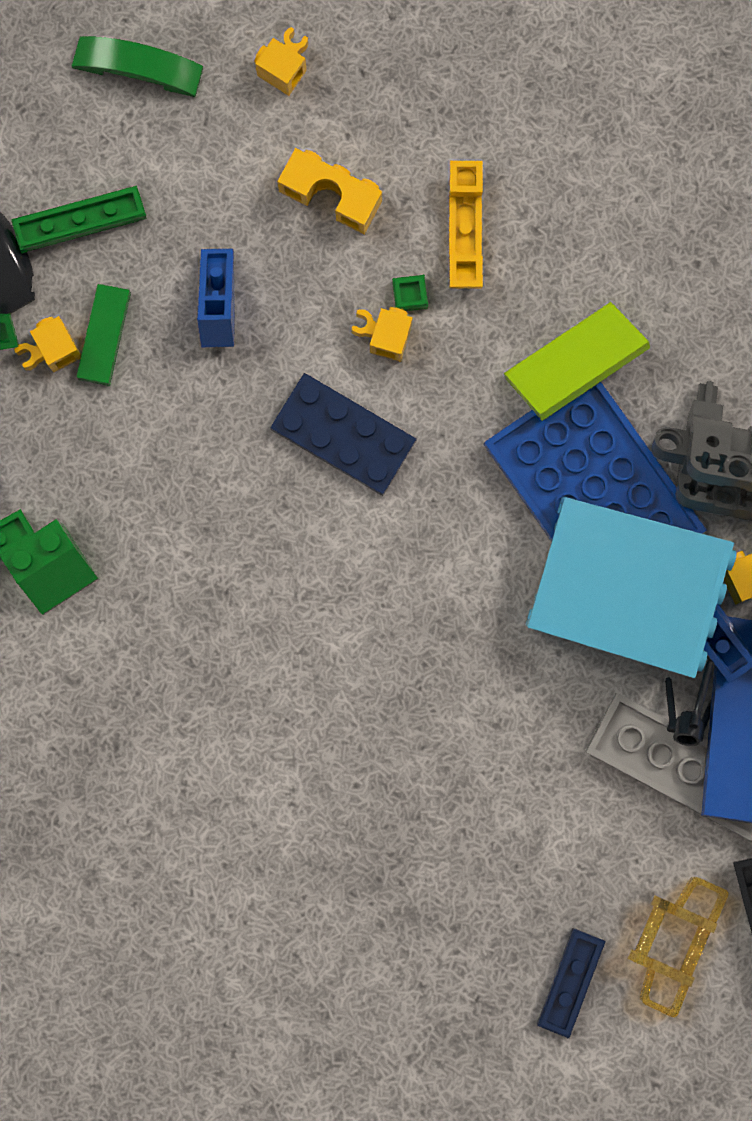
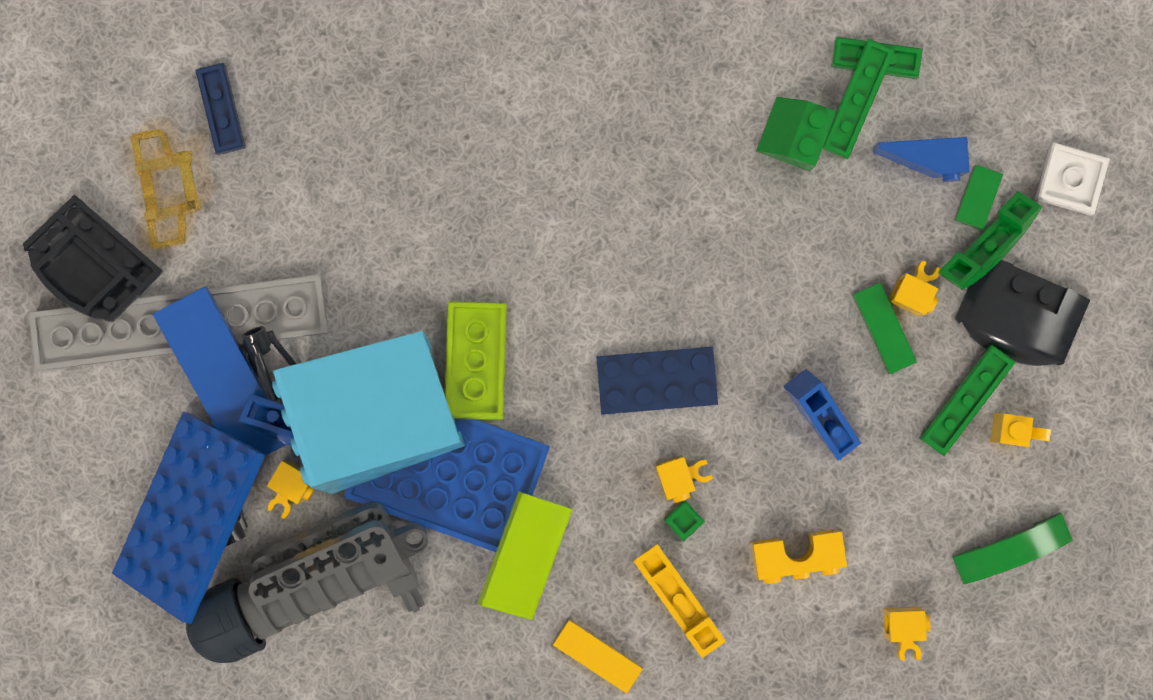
camera: 145 degrees right, 5 degrees up
(56, 161) = (1016, 430): none -> yellow brick
(496, 569) = (475, 360): none -> lime tile
(574, 230) = (597, 656): none -> yellow tile

